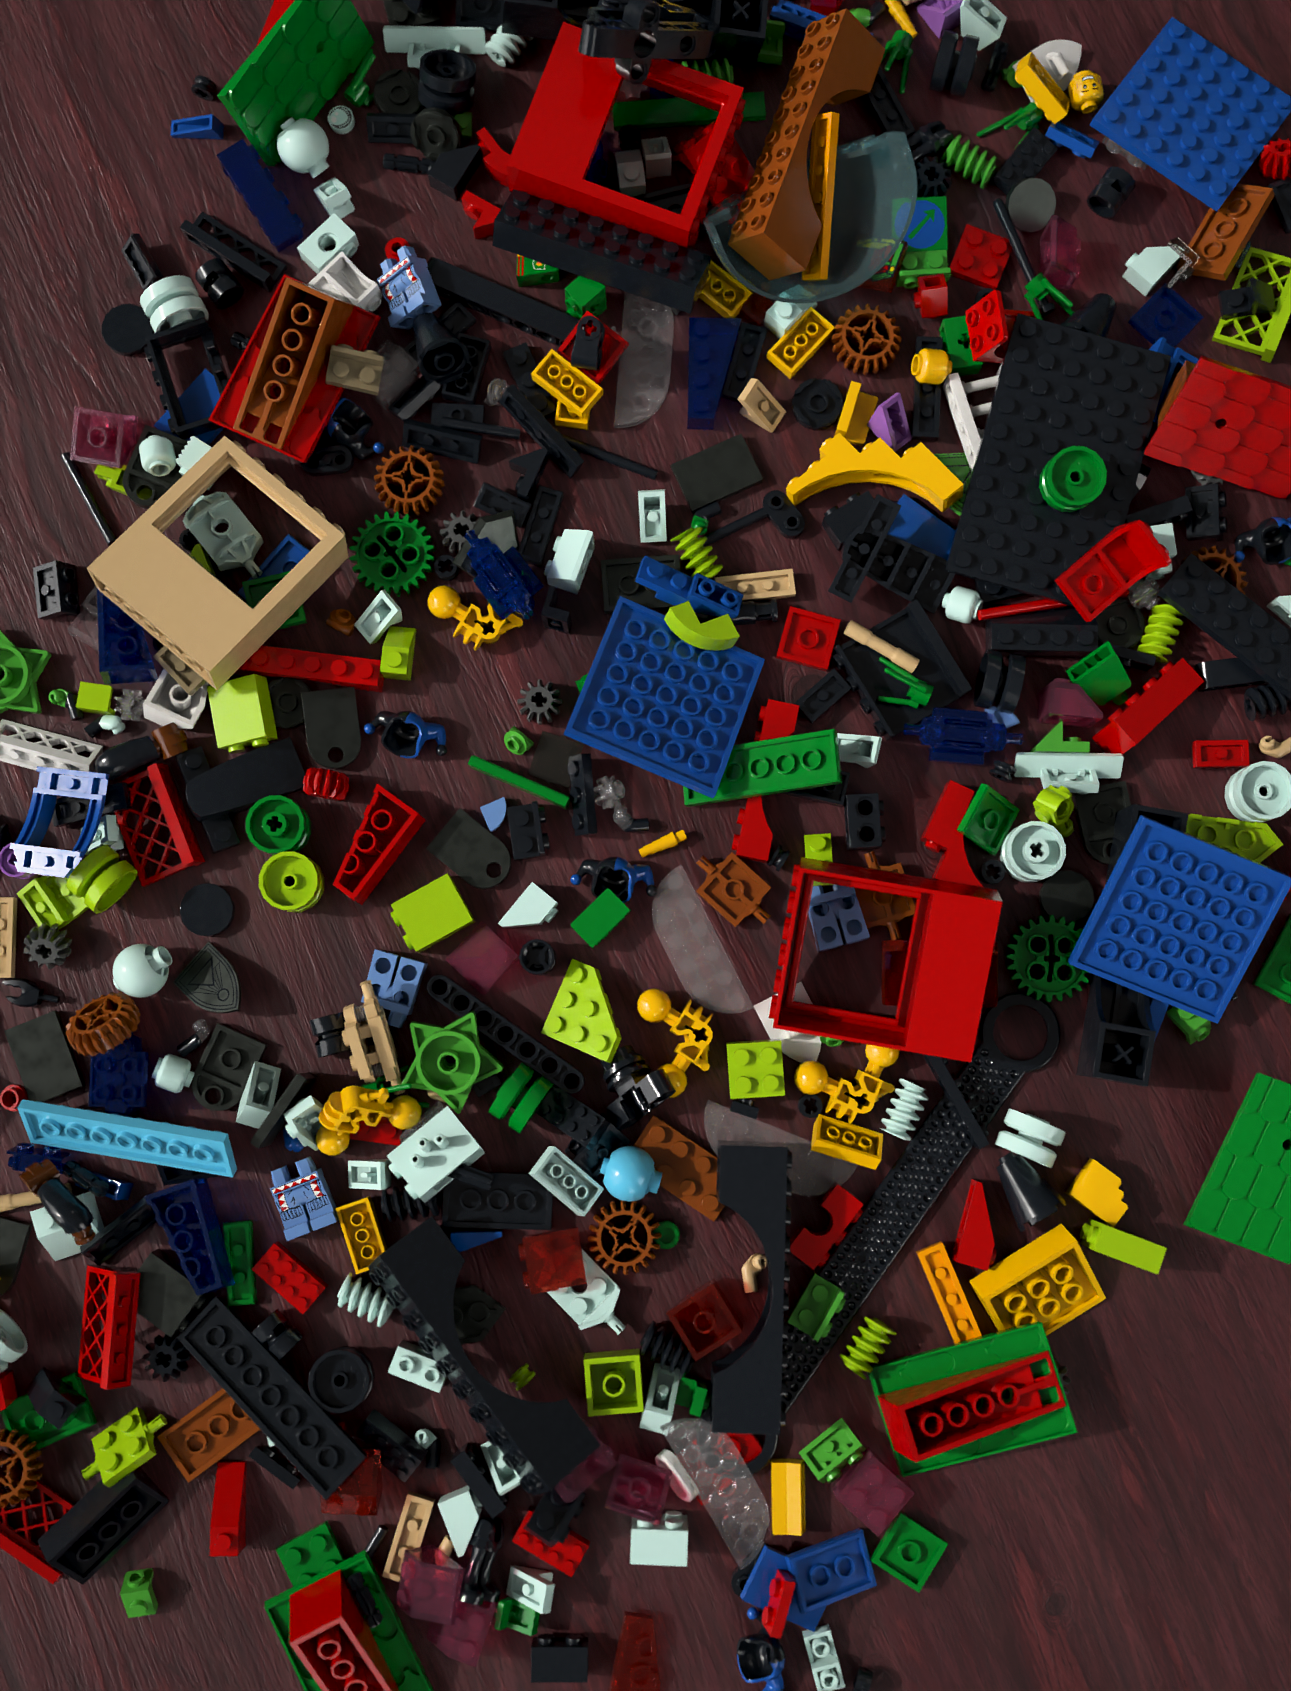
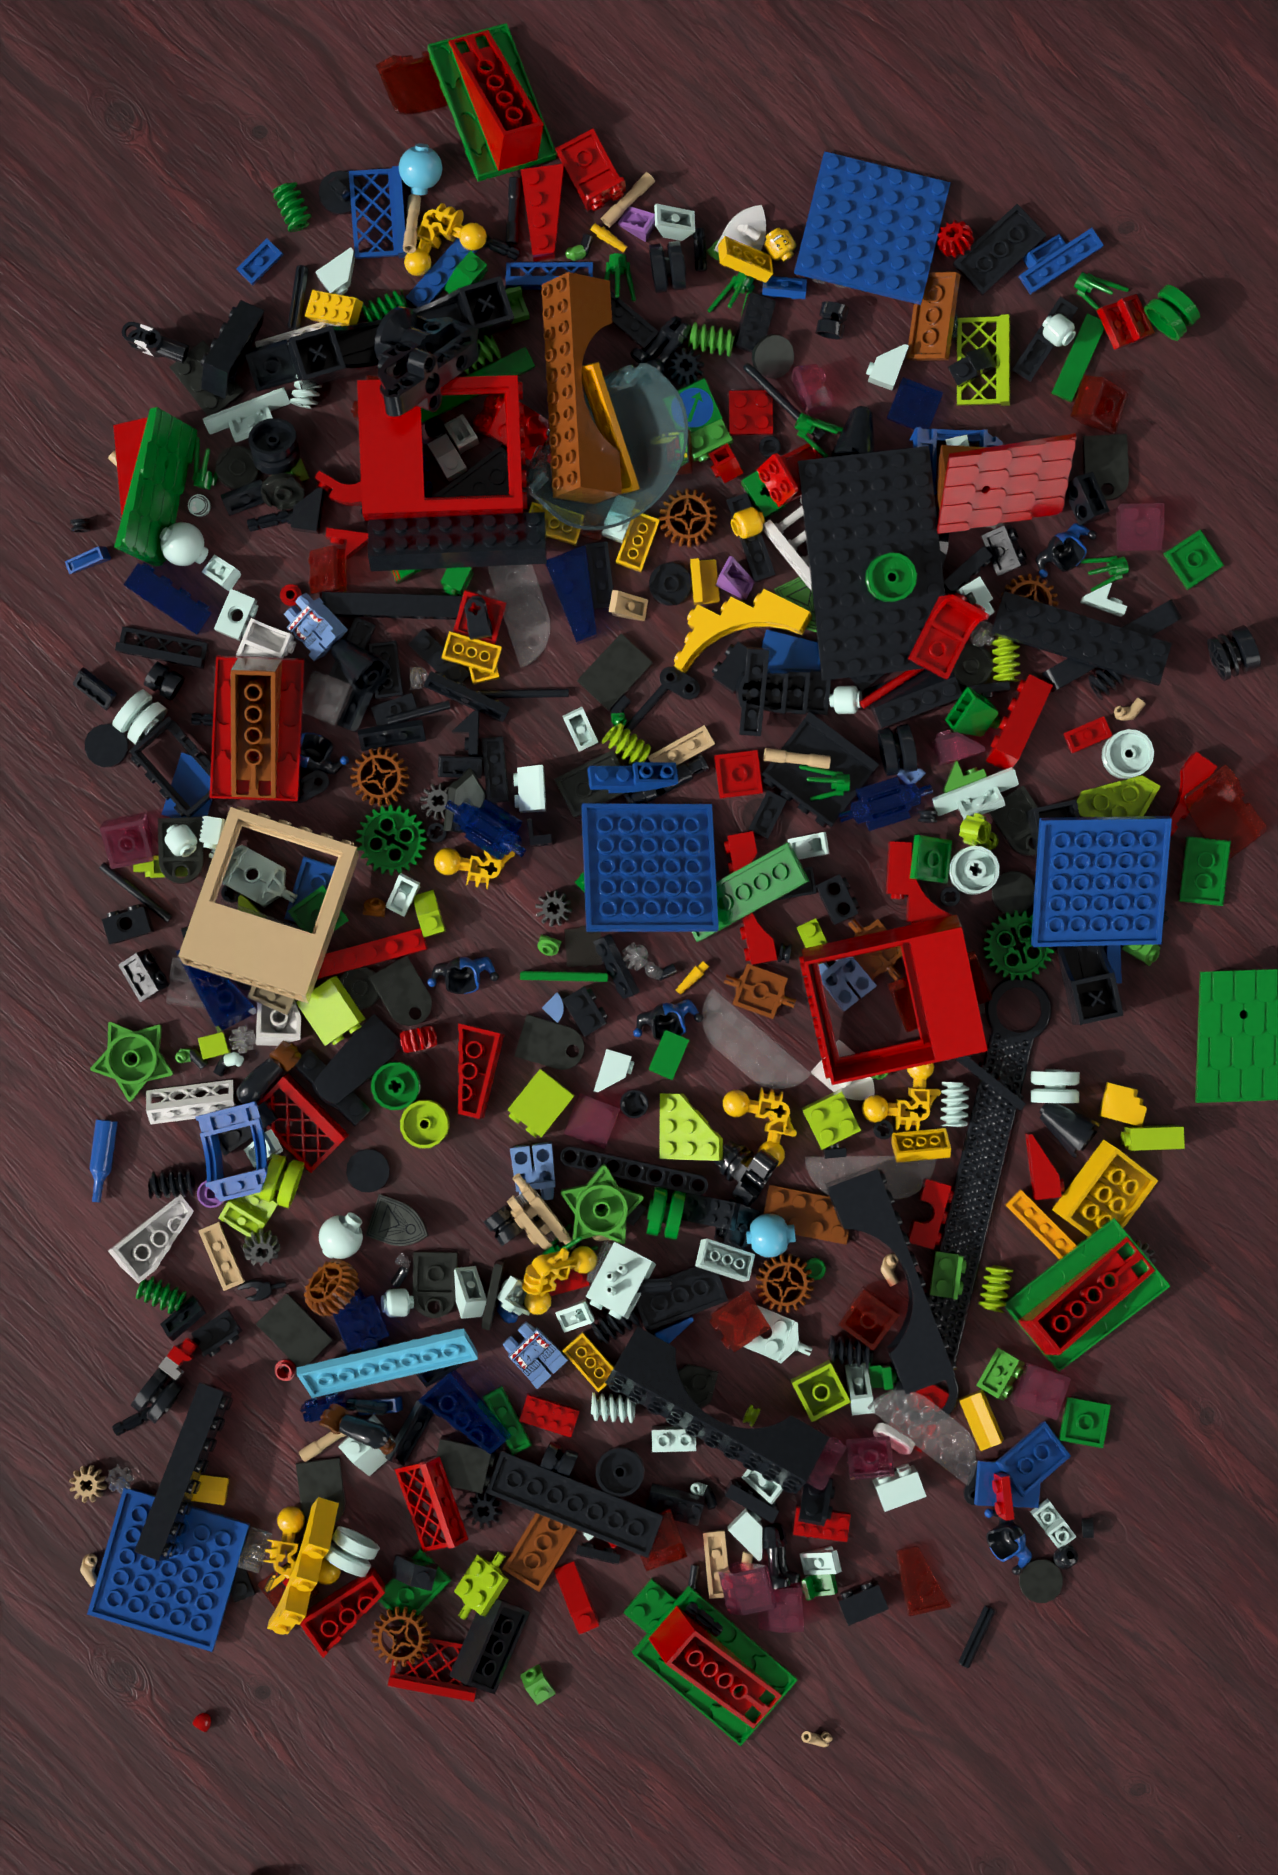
camera: 25 degrees left, 5 degrees up
(75, 536) = (140, 924): none -> black brick
(354, 369) = (305, 713): dark tan bracket -> none
(449, 237) = (327, 570): none -> clear red bracket
(710, 635) = (665, 805): lime brick -> none
(1190, 258) = (912, 356): clear smoke bracket -> none

